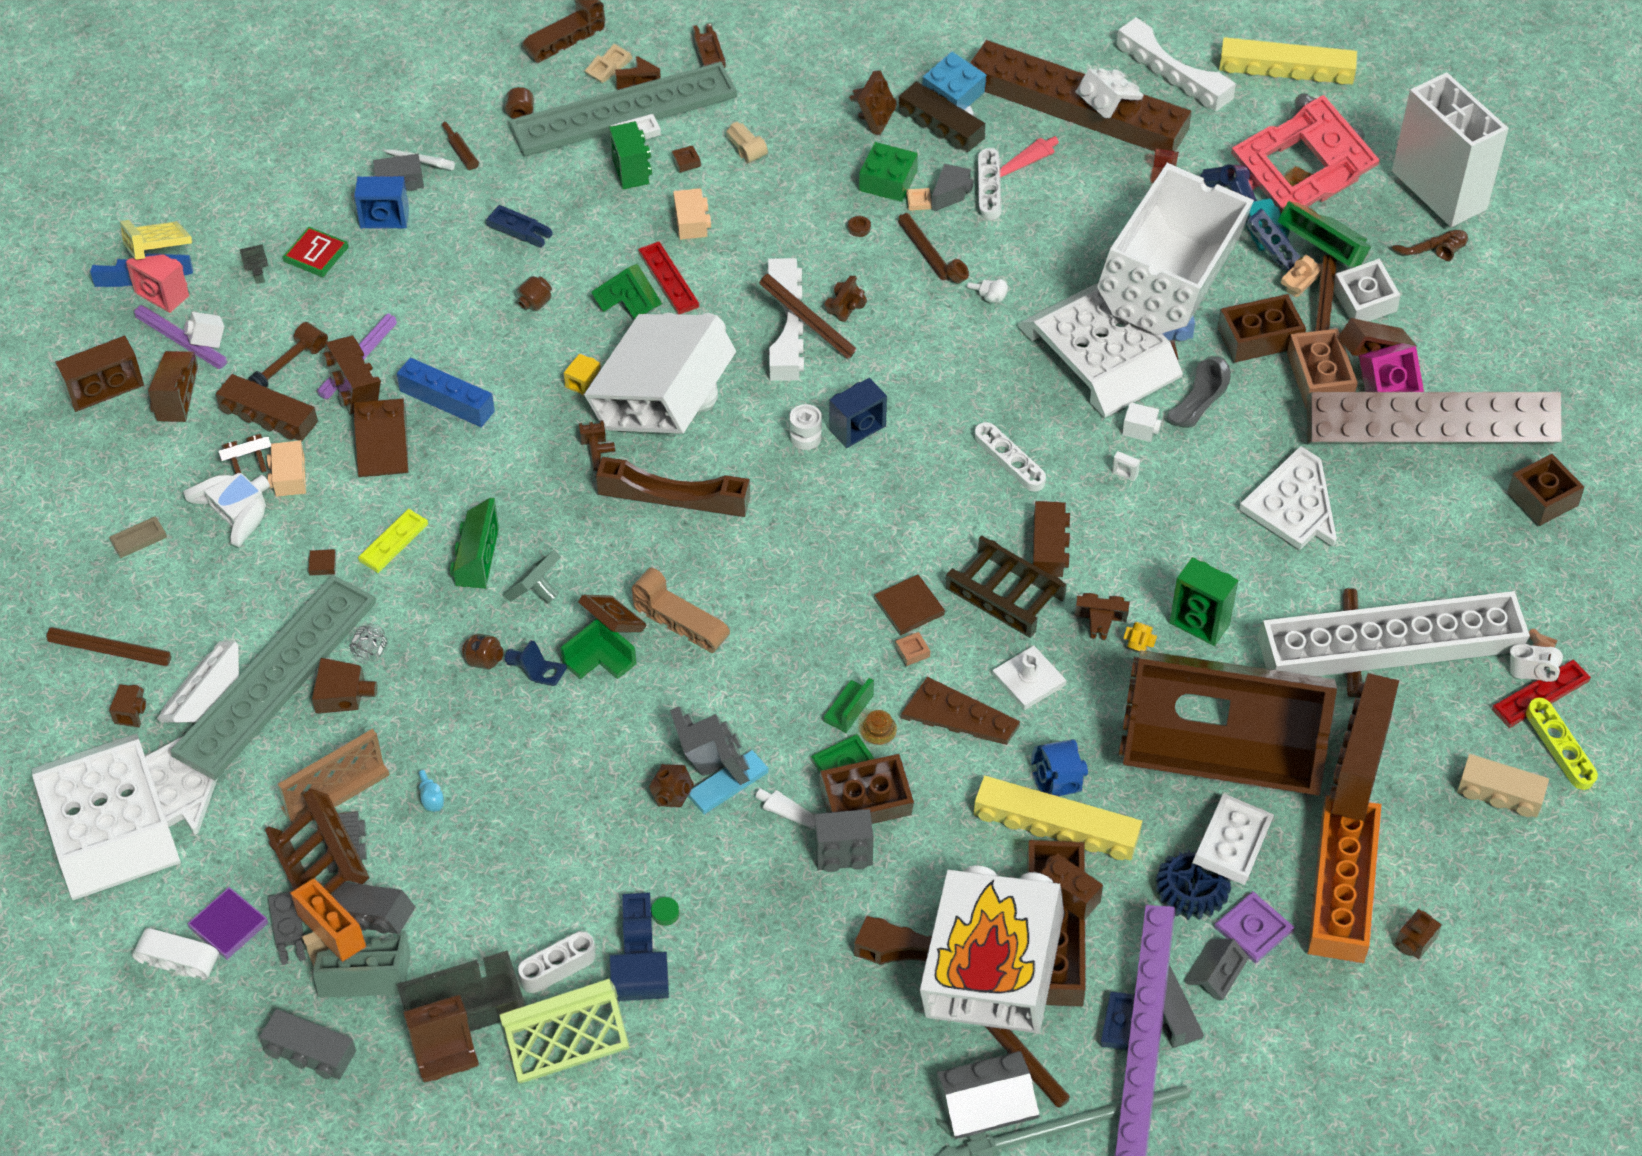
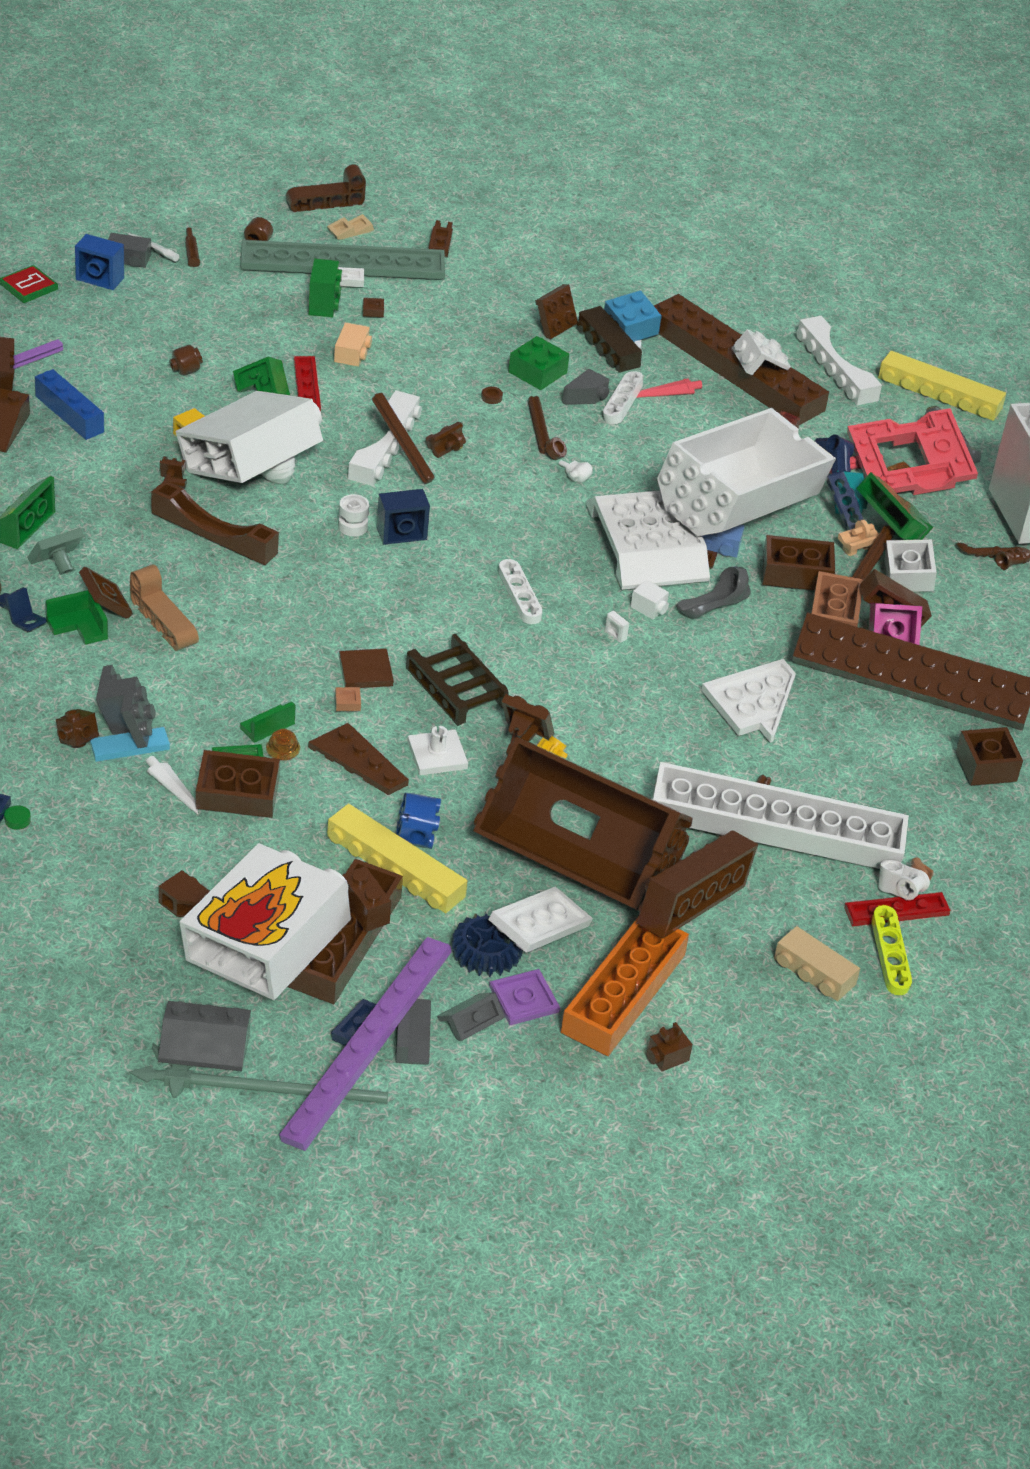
camera: 15 degrees right, 10 degrees down
(519, 226) = (204, 313): dark blue hinge -> none
(641, 74) = (363, 238): reddish brown slope -> none
(748, 145) = (431, 312): tan piece -> none
(844, 840) = (196, 809): dark grey brick -> none
(919, 199) = (554, 391): light nougat tile -> none
(1037, 1071) = (259, 1030): reddish brown axle -> none
(1050, 537) = (518, 656): reddish brown brick -> none
(1203, 601) = (618, 735): green brick -> none

